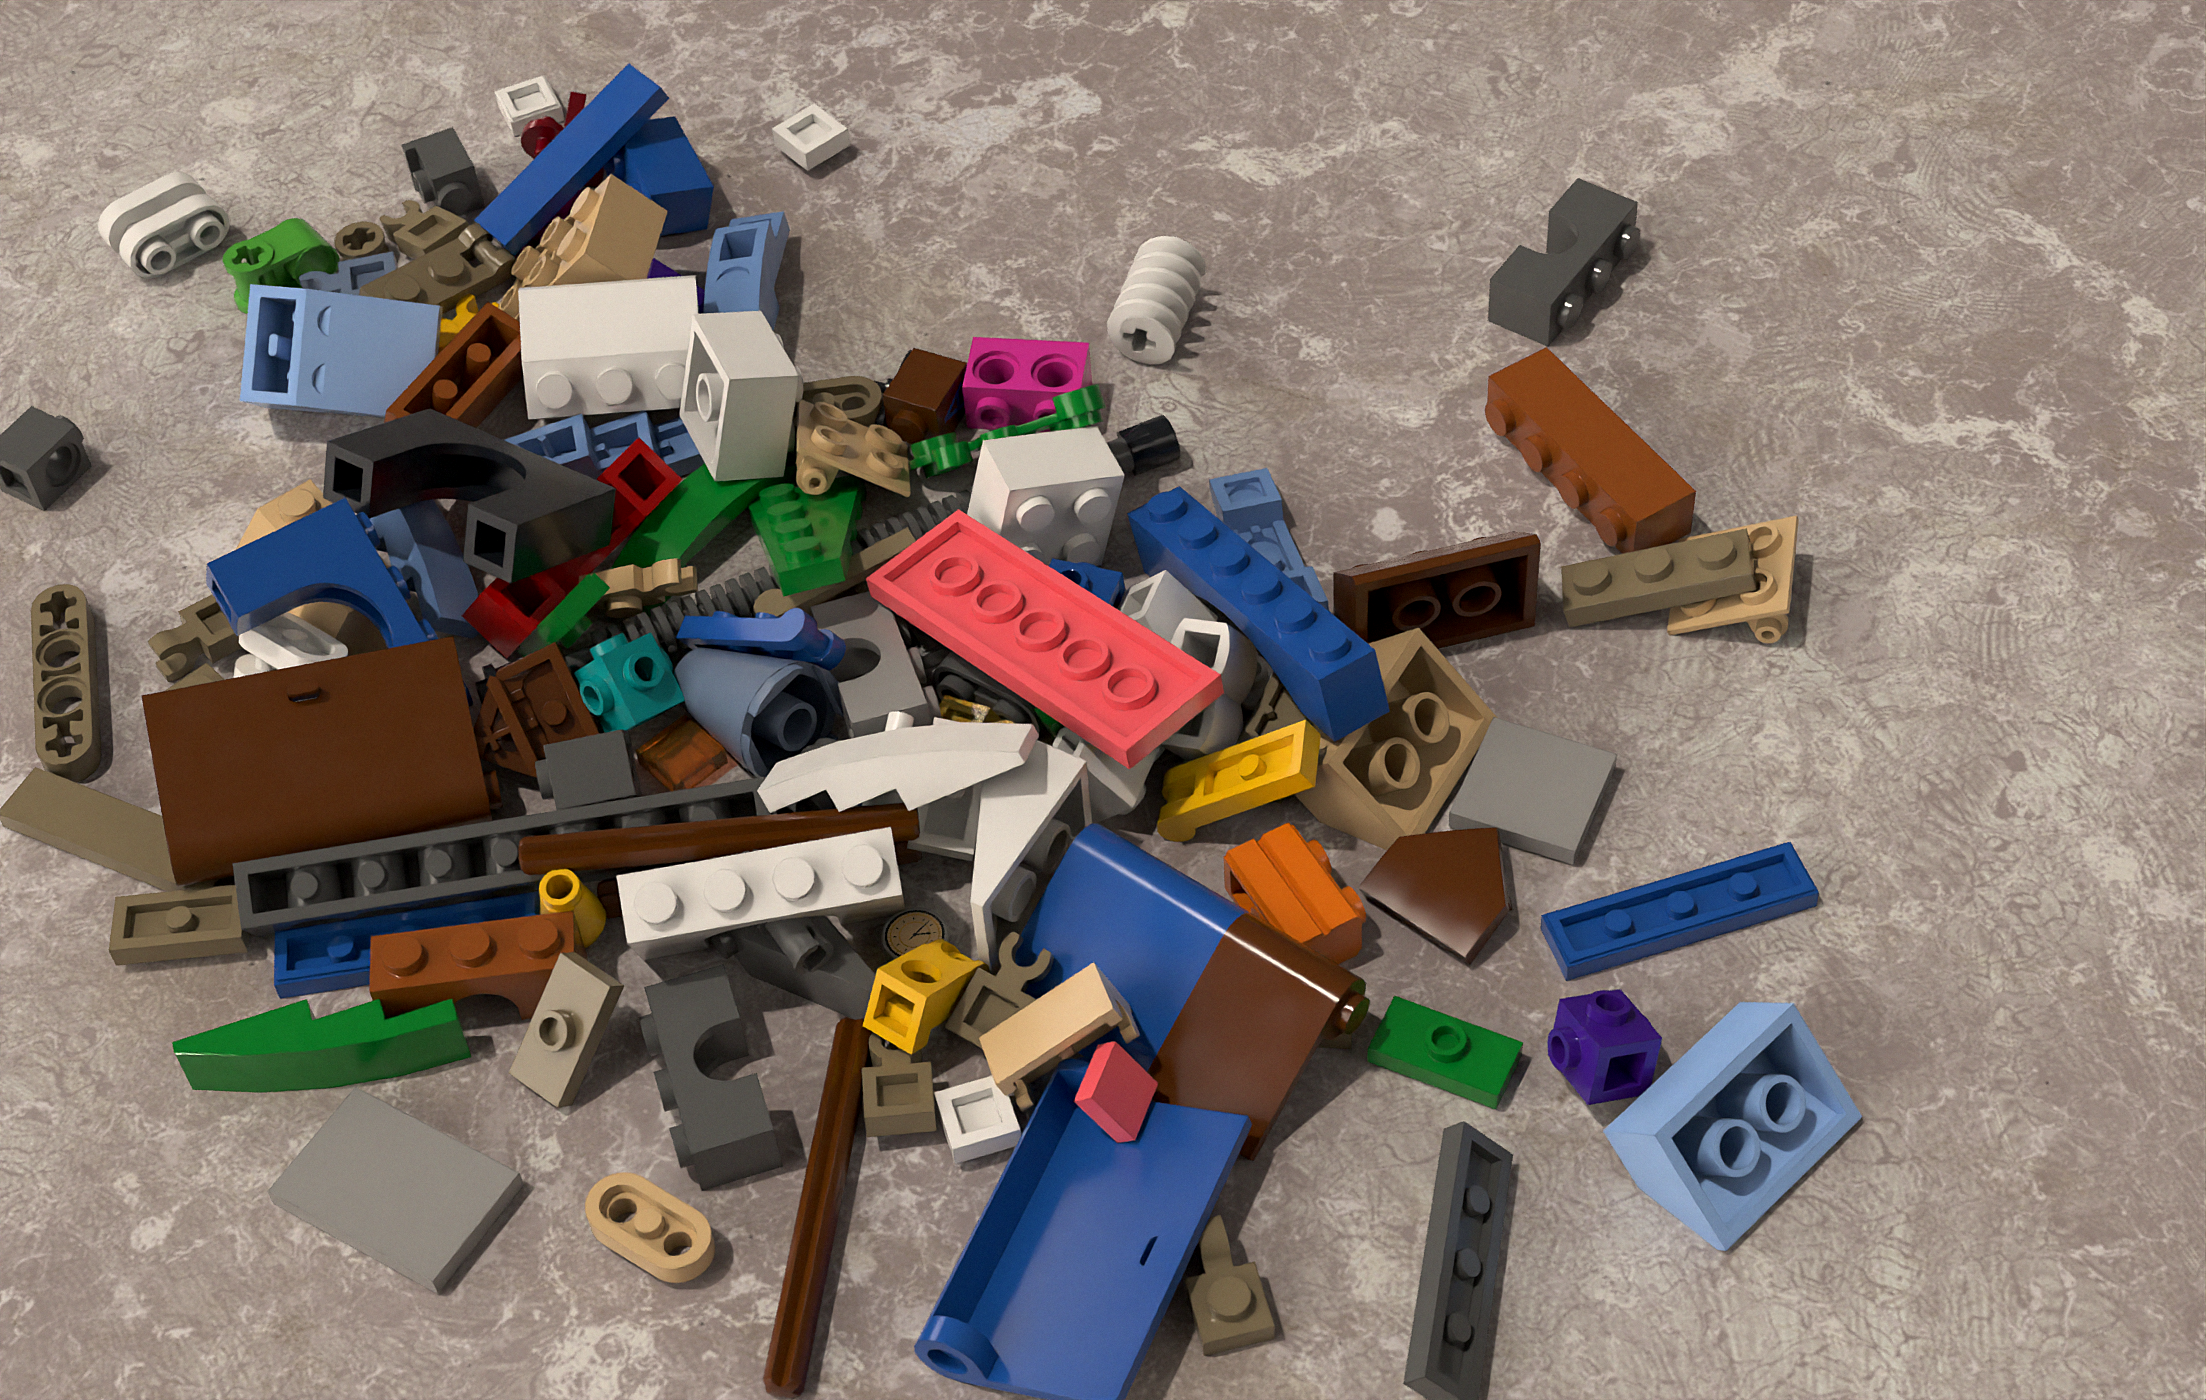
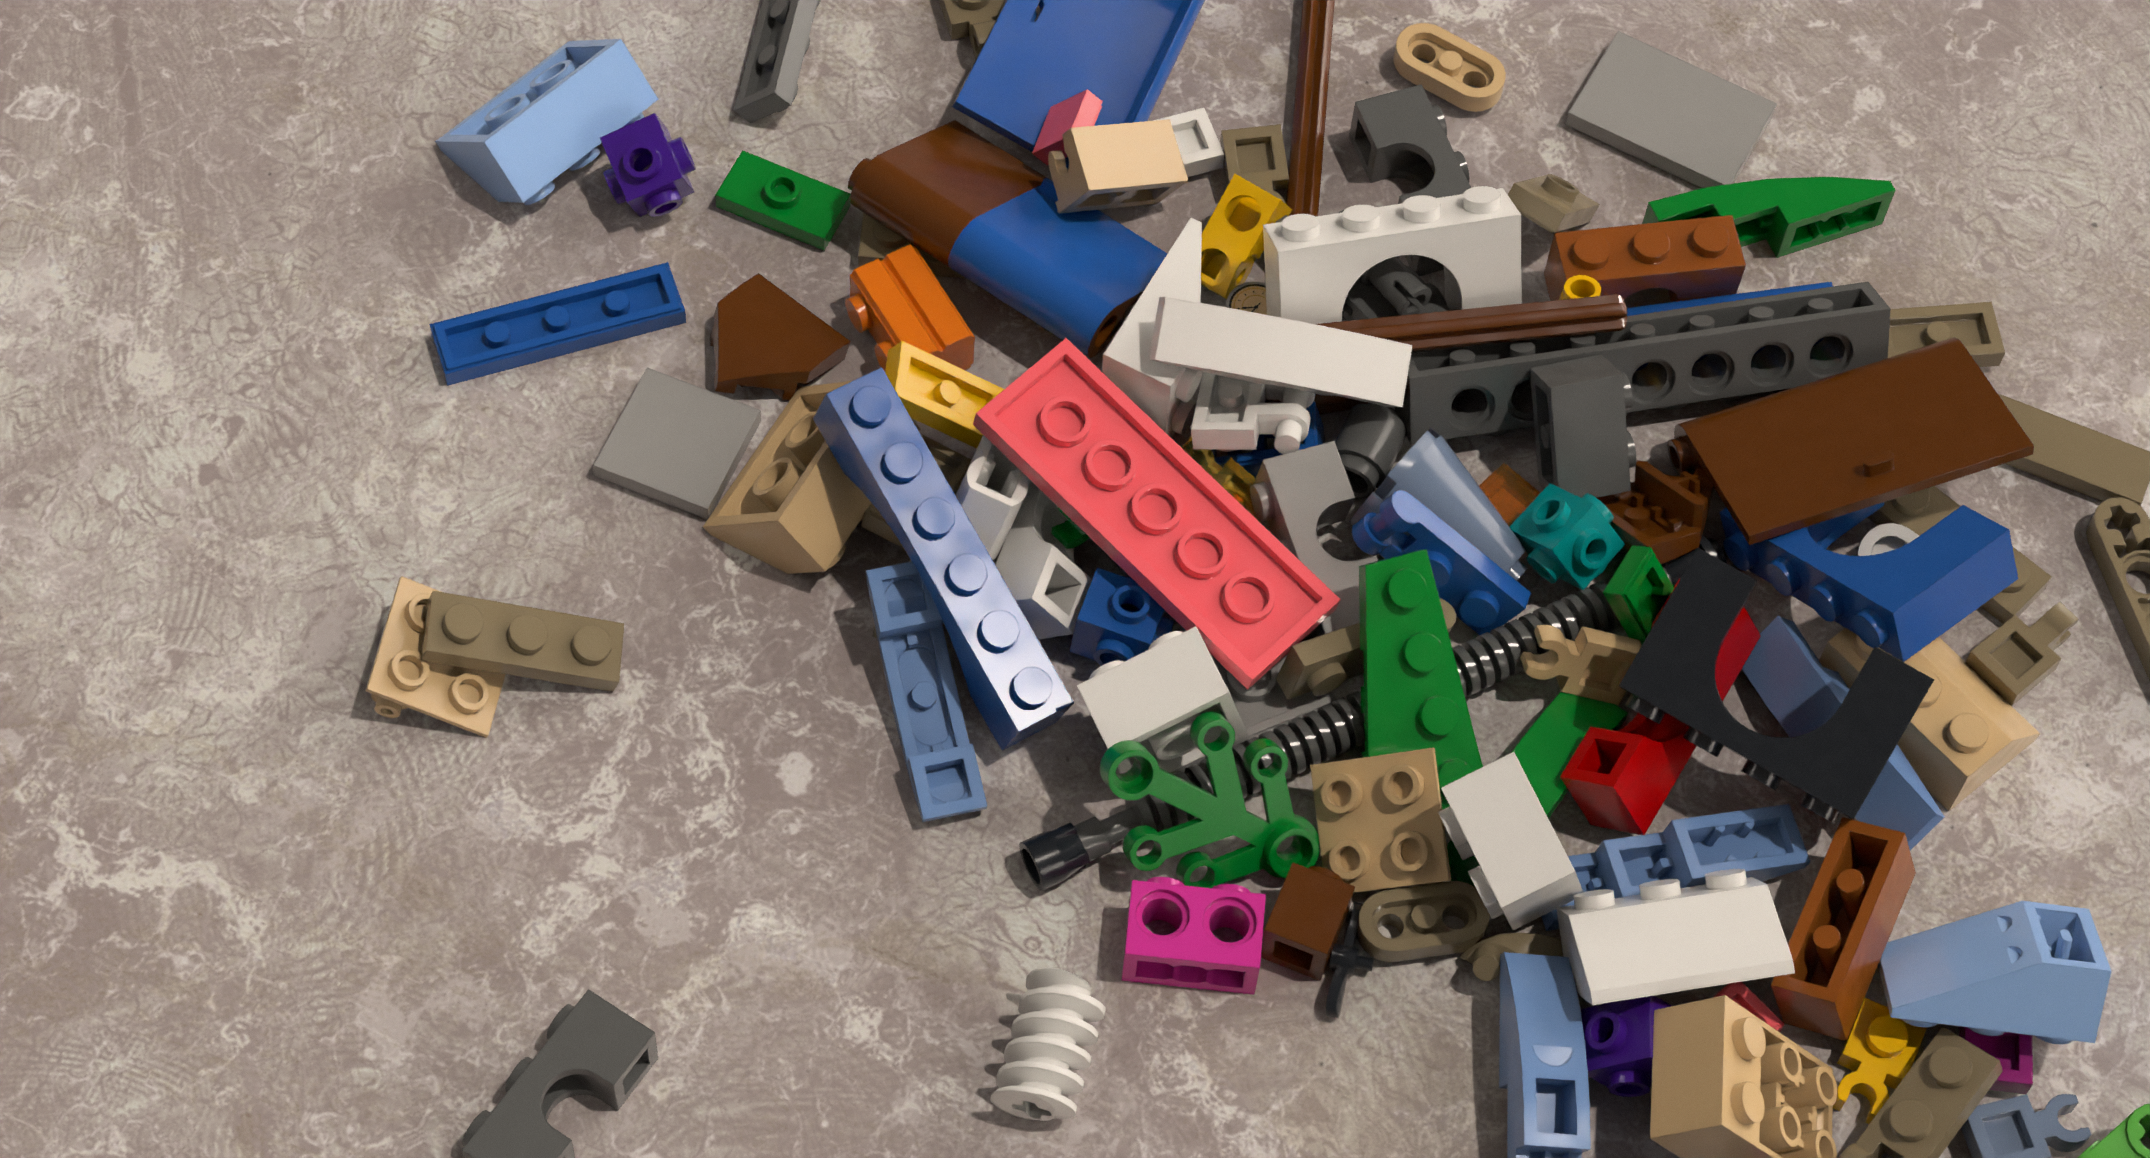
camera: 170 degrees right, 10 degrees up
(995, 999) = (1162, 227): dark tan plate -> none
(1445, 592) = (753, 622): reddish brown slope -> none
(1589, 454) = (573, 816): dark orange brick -> none

